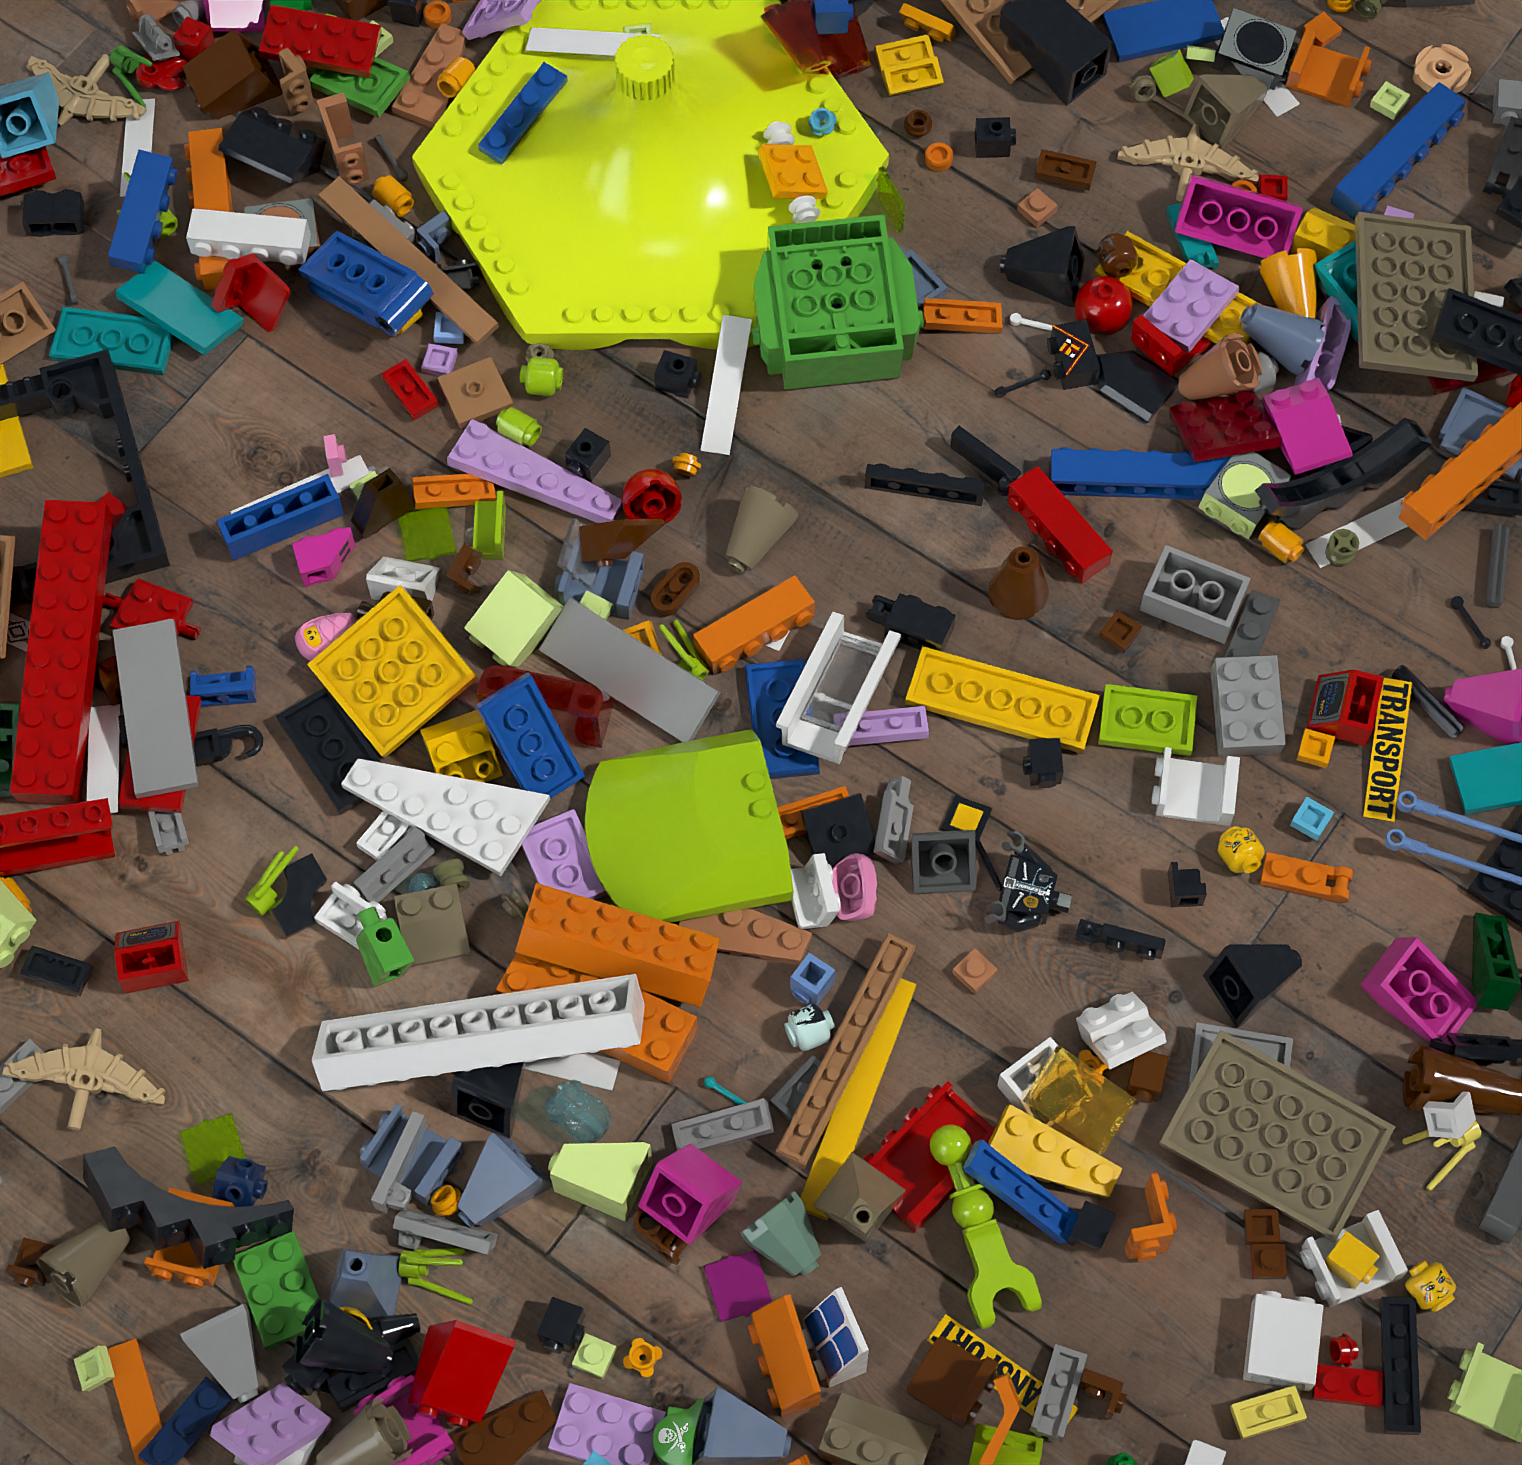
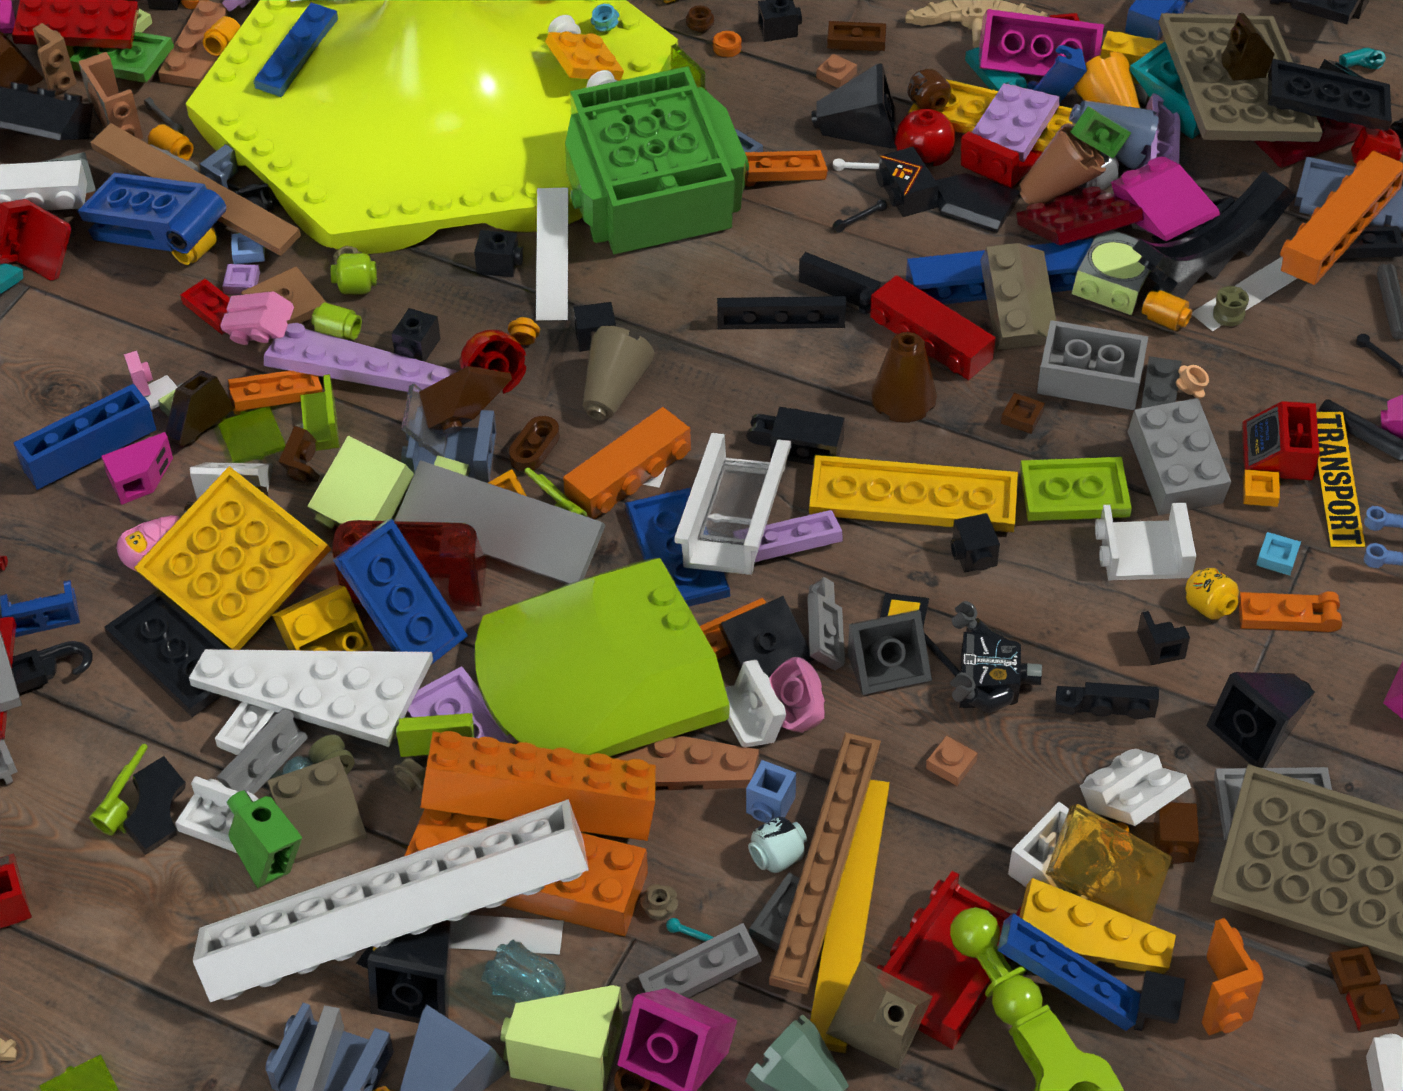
camera: 10 degrees left, 15 degrees down
(447, 416) = (256, 317): none -> bright pink brick
(529, 870) = (415, 733): none -> lime panel
(707, 1065) = (663, 909): none -> dark tan plate
(750, 467) = (590, 318): none -> black panel
(1145, 508) = (1017, 295): none -> dark tan slope
(1248, 262) = (1062, 74): none -> blue hinge
(1261, 346) = (1100, 132): none -> bright green plate
(1290, 620) = (1192, 380): none -> light nougat plate
(1425, 279) = (1247, 51): none -> dark brown slope

